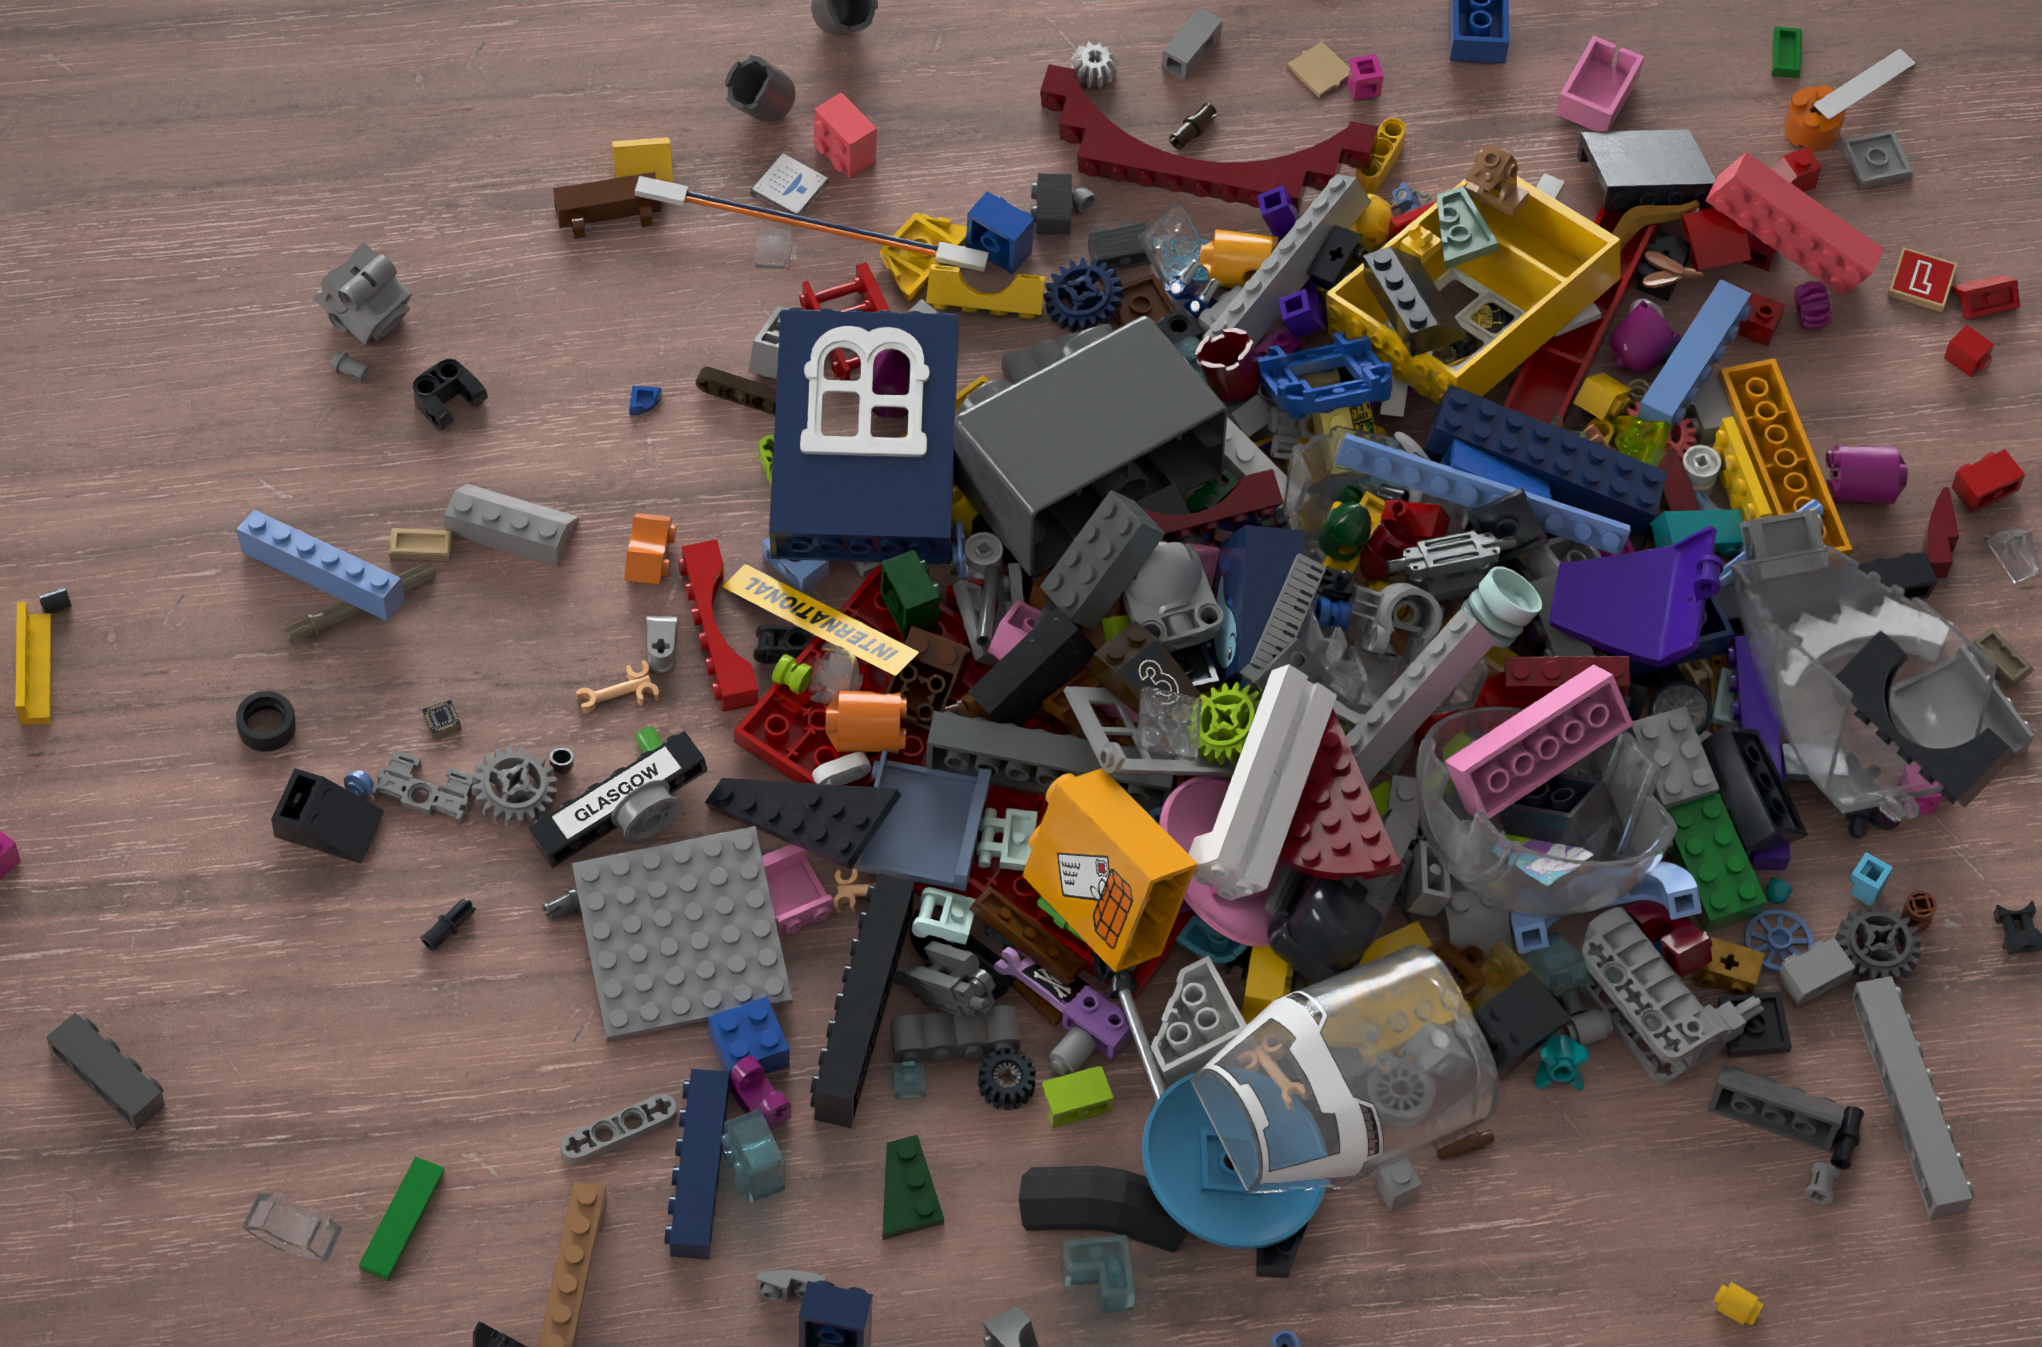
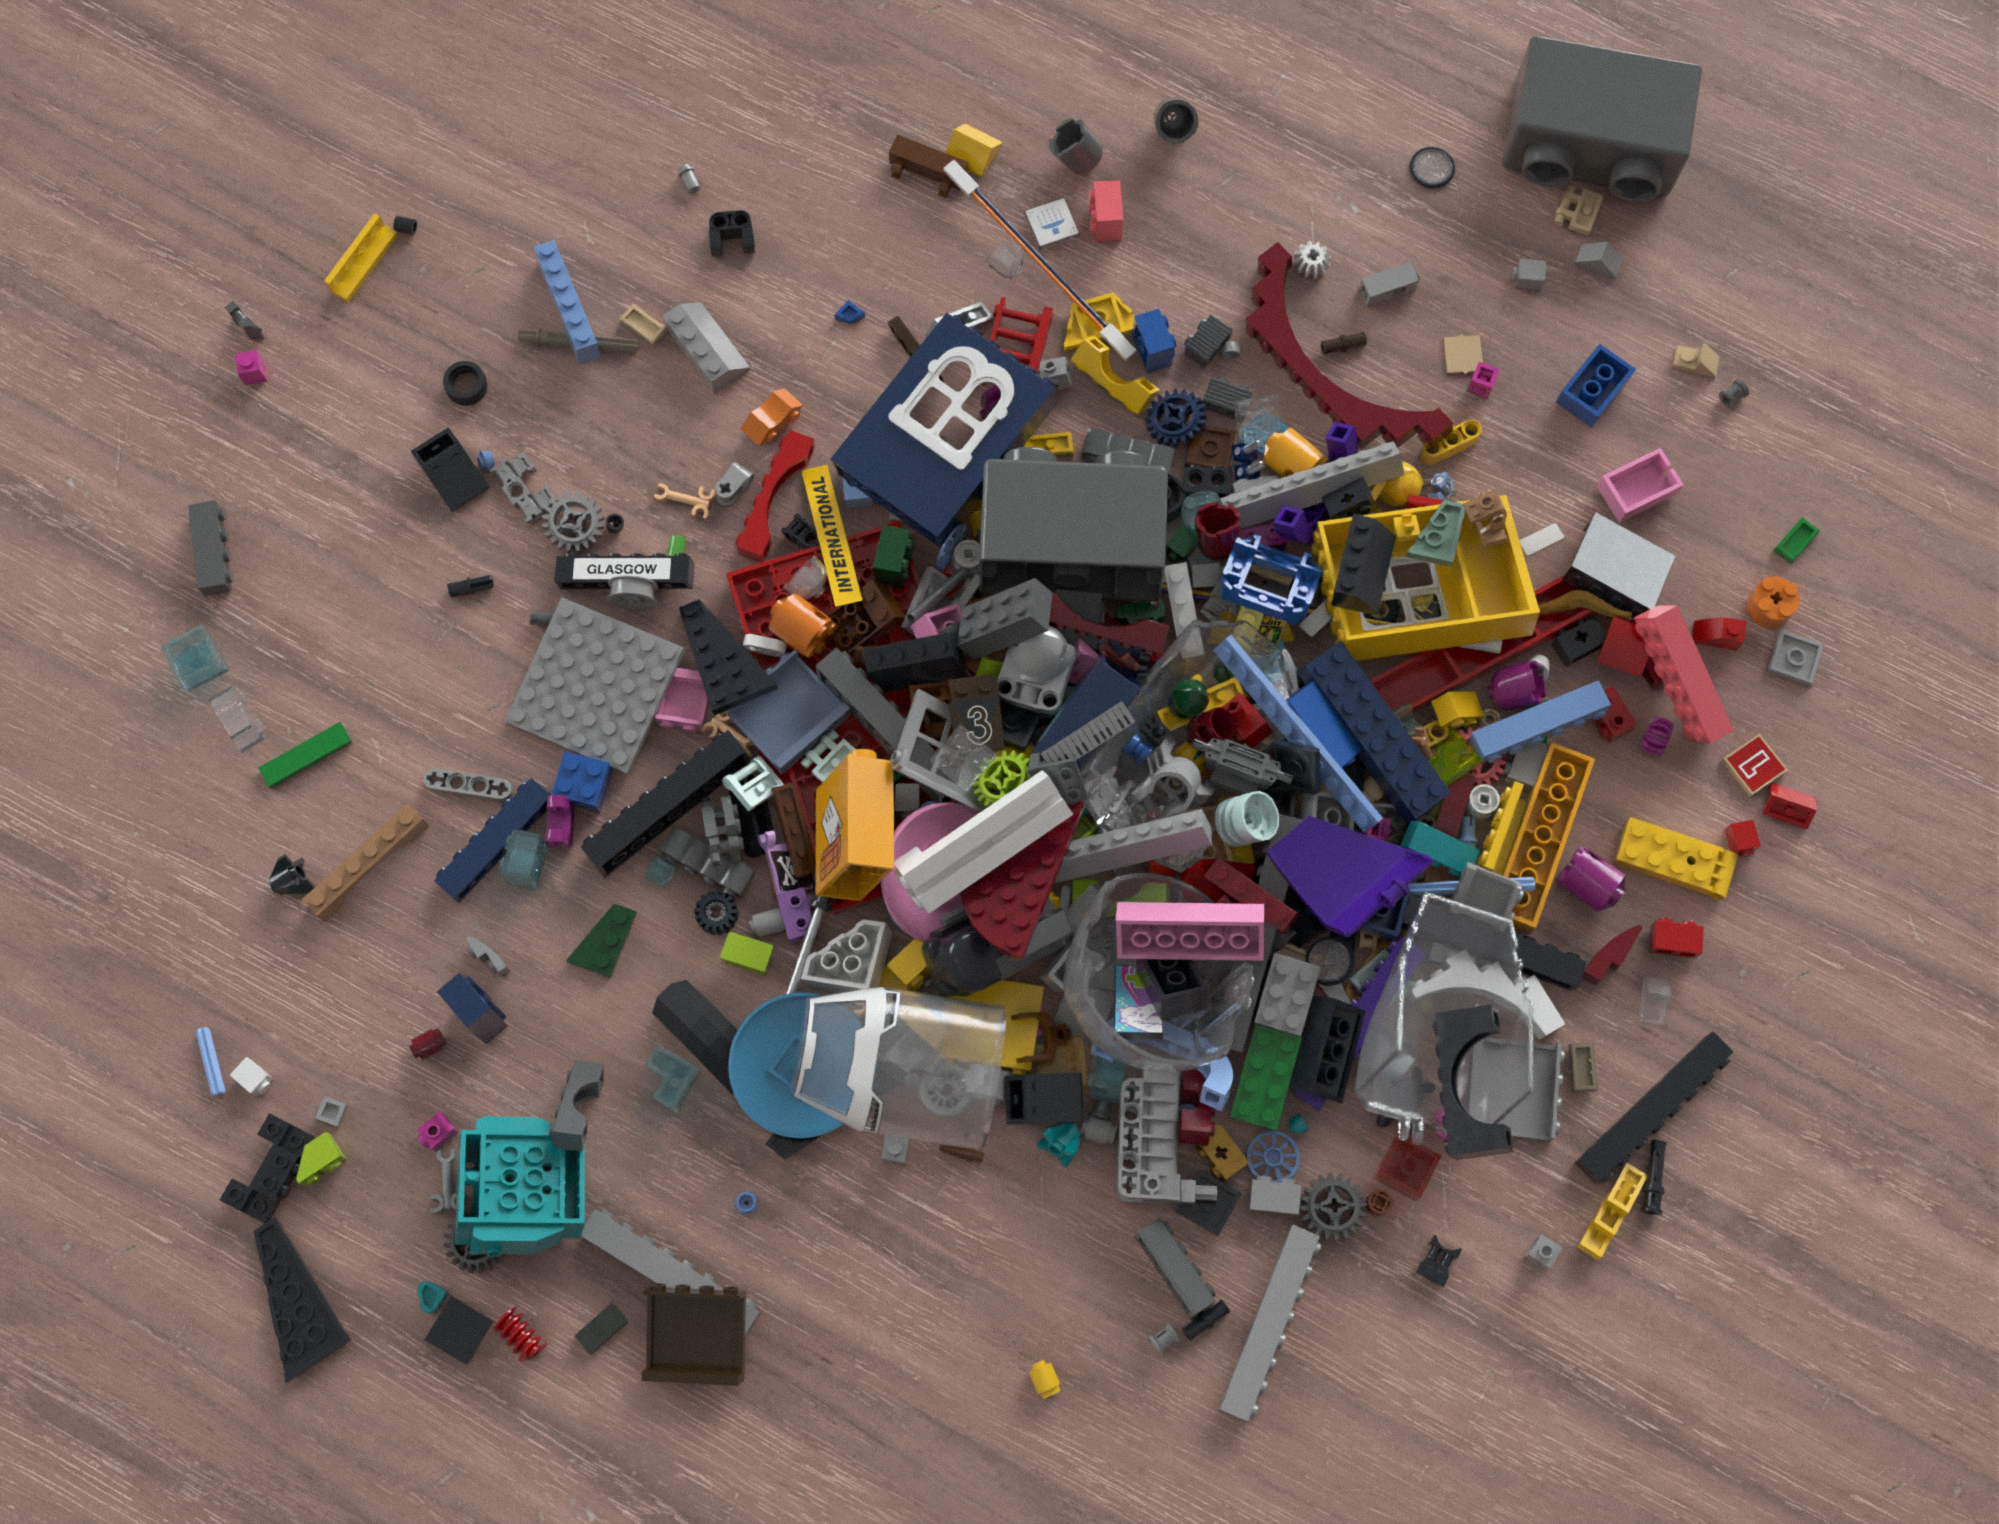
camera: 40 degrees right, 15 degrees up
(189, 1193) = (195, 658): none -> clear light blue brick
(364, 296) = (724, 137): light grey piece -> none
(441, 719) = (568, 449): tile -> none
(792, 674) = (784, 560): lime wheel -> none
(1670, 273) = (1577, 651): nougat piece -> none
(1864, 83) = (1827, 599): white sticker -> none
(1869, 878) = (1361, 1159): medium azure brick -> none
(1919, 856) = (1407, 1167): none -> clear red brick
(1923, 408) = (1665, 857): none -> yellow hinge

